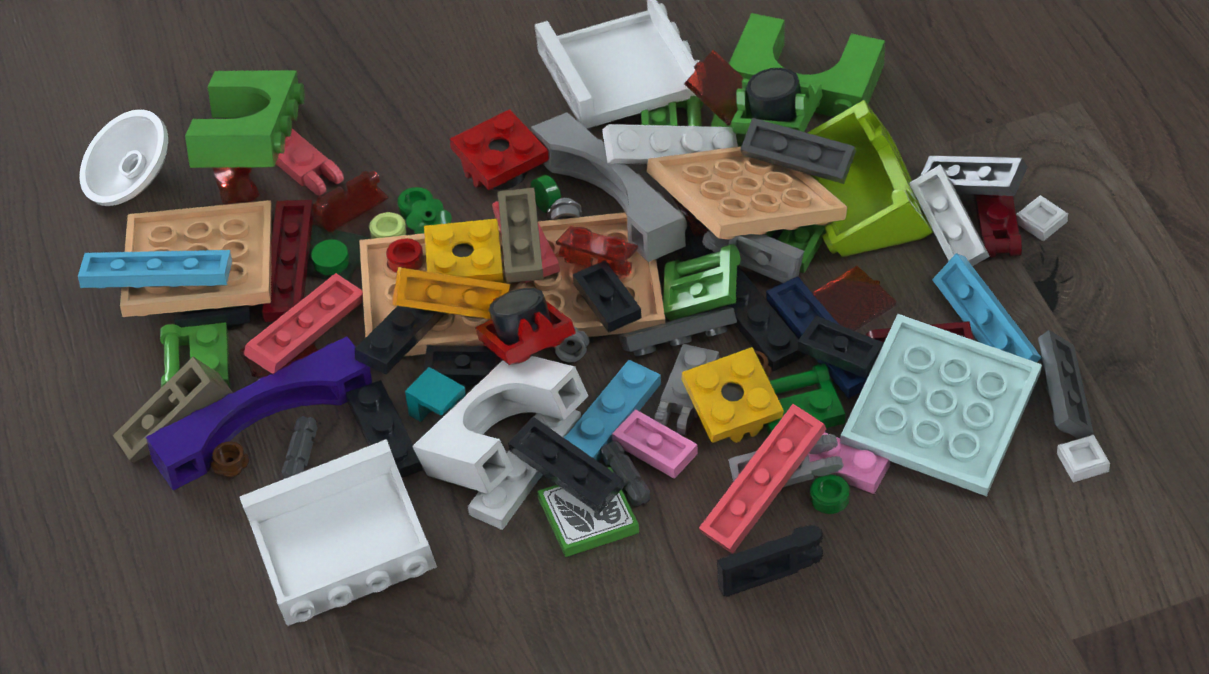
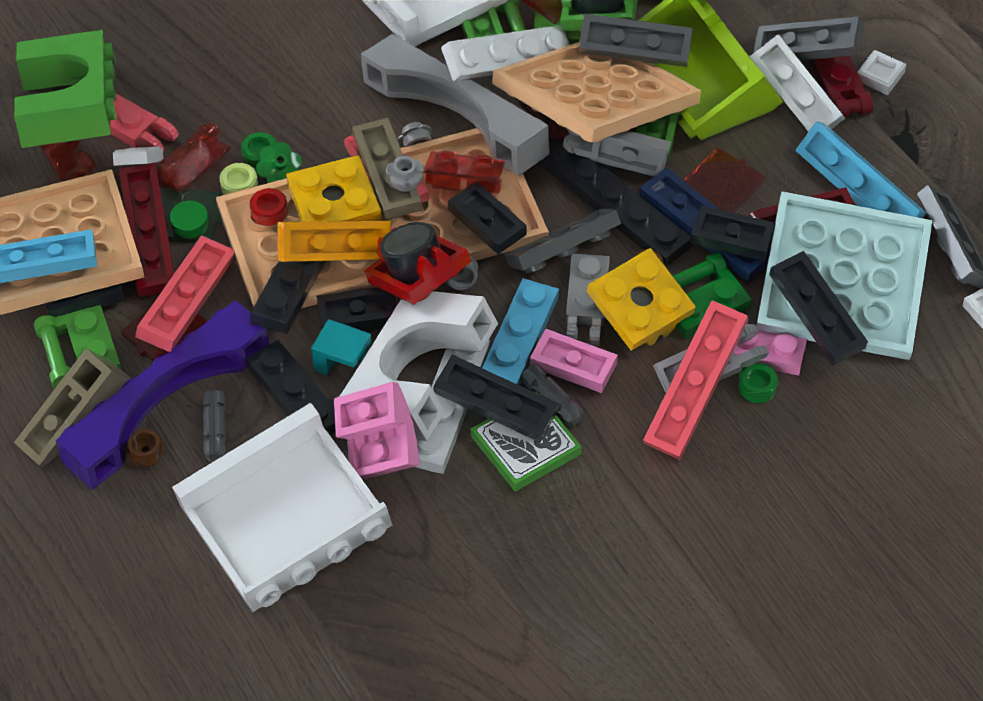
camera: 15 degrees left, 5 degrees up
(297, 191) = (138, 155): none -> white tile
(442, 475) = (377, 430): none -> bright pink slope
(498, 151) = (332, 84): red piece -> none
(532, 241) = (405, 173): none -> light grey plate
(545, 192) = (395, 115): green tile -> none
(701, 290) = (576, 196): bright green plate -> none
(770, 560) = (722, 462): black hinge -> none
(901, 429) = (818, 308): none -> black plate

